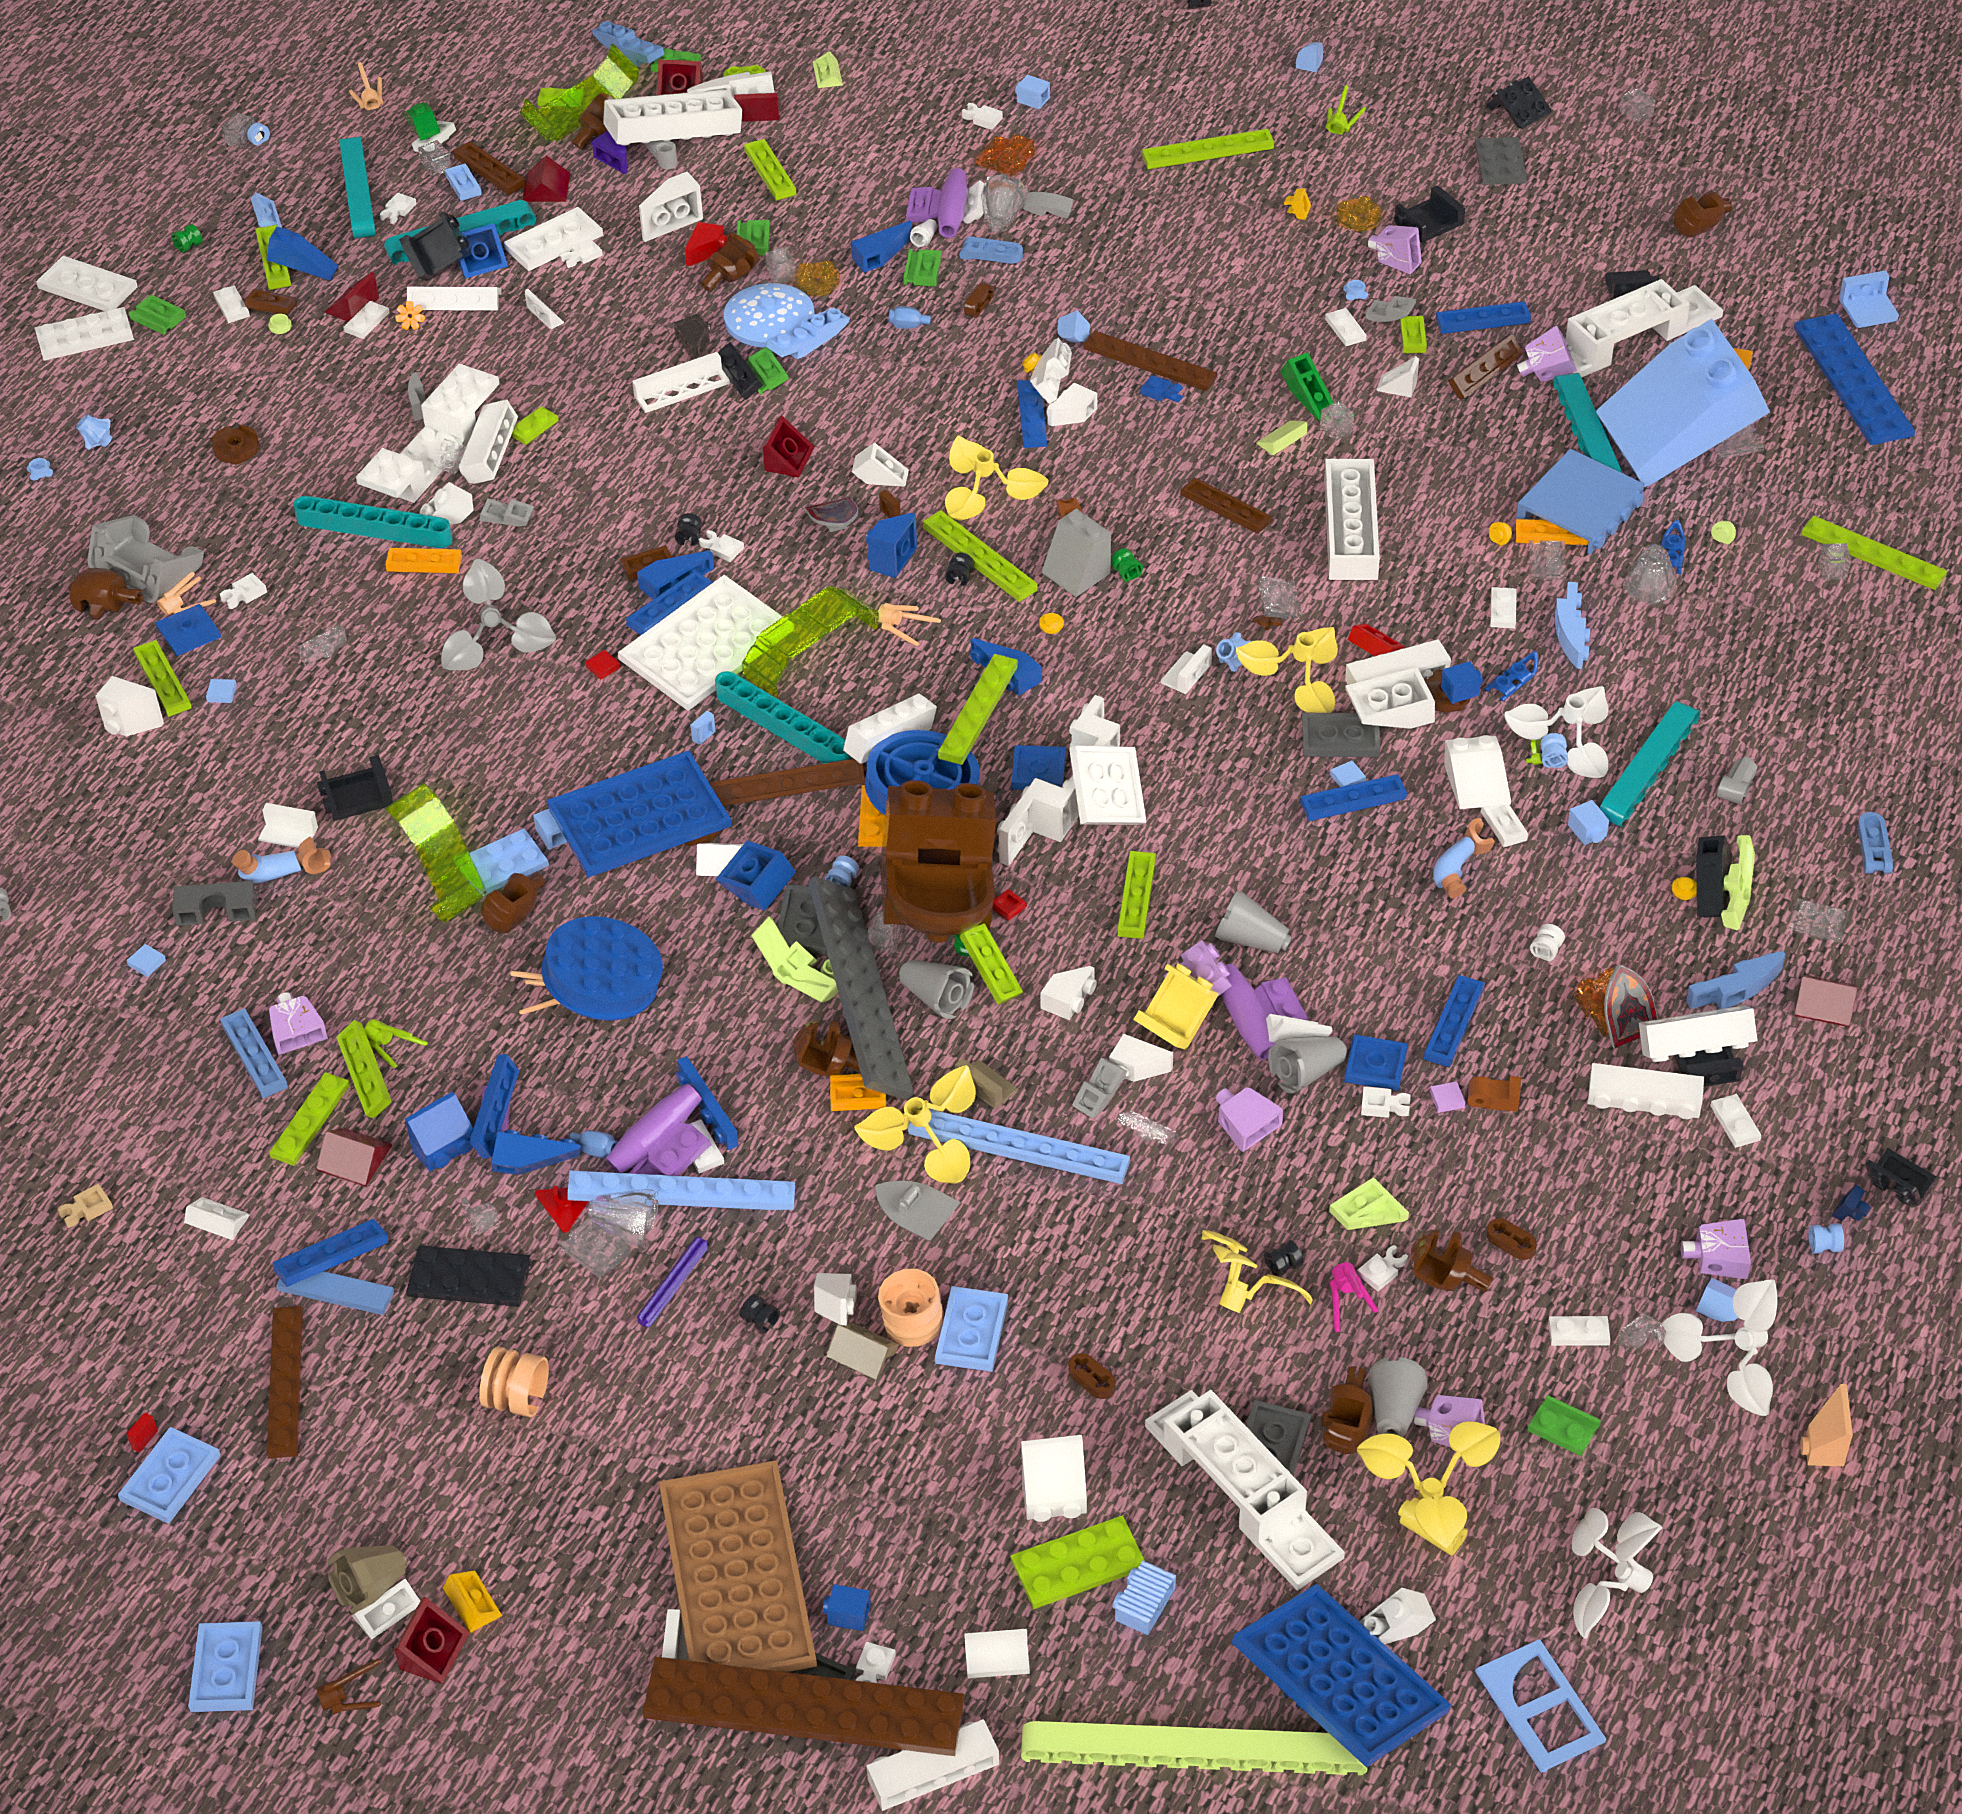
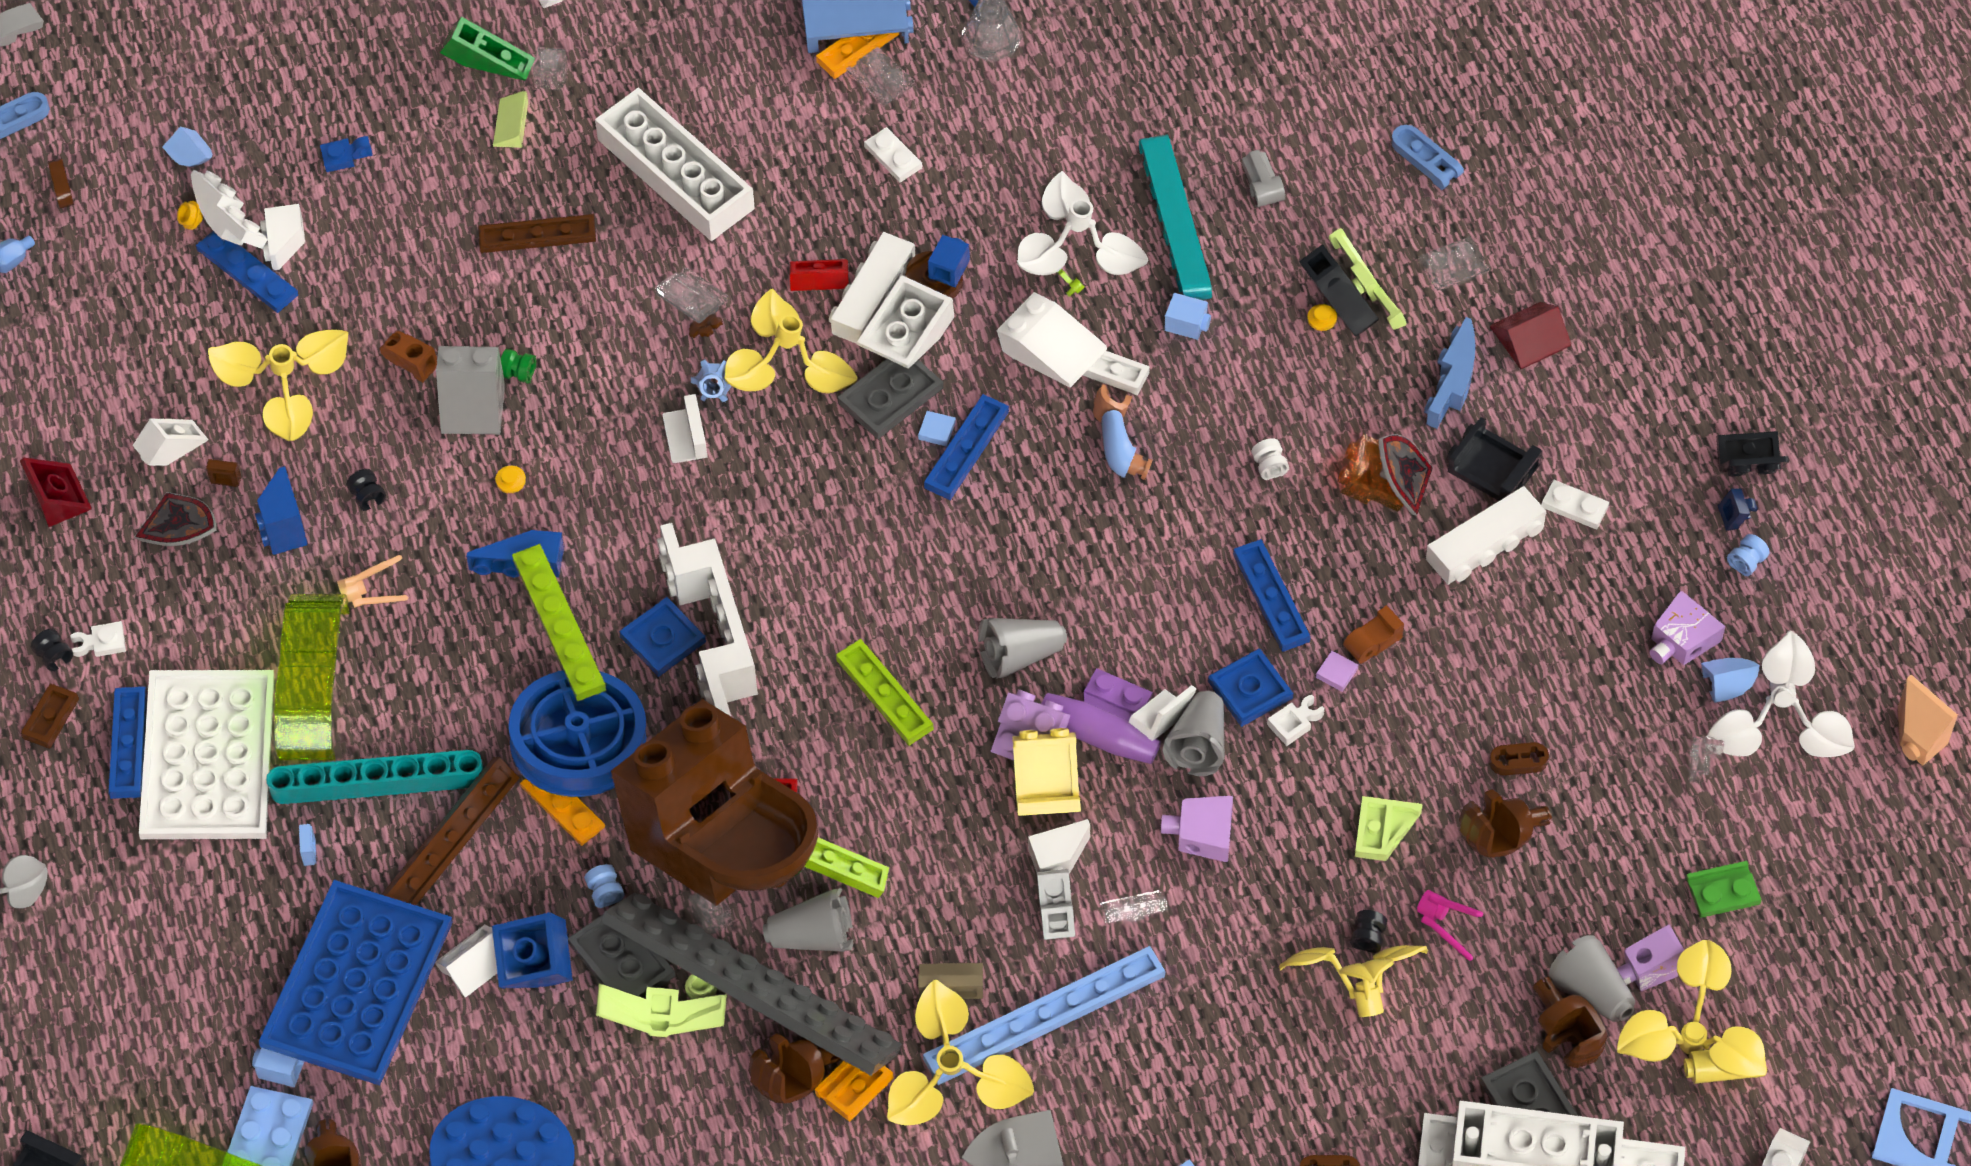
camera: 45 degrees left, 10 degrees up
(602, 664) = (127, 857): red tile -> none
(667, 572) = (90, 710): blue slope -> none
(910, 714) = (495, 706): white brick -> none
(985, 559) = (381, 459): lime plate -> none
(1066, 991) = (929, 836): white slope -> none
(1107, 785) = (764, 607): white plate -> none
(1150, 360) = (298, 129): reddish brown plate -> none
(1380, 1270) = (1449, 875): white plate -> none
(1500, 533) = (815, 80): yellow plate -> none
(1516, 671) = (973, 211): blue piece -> none
(1554, 750) = (1086, 267): light blue wheel -> none
(1571, 626) = (975, 134): light blue slope -> none
(1579, 1330) = (1650, 796): white plate -> none
(1632, 1537) = (1912, 944): white plant -> none
(1698, 1032) = (1480, 448): white brick -> none

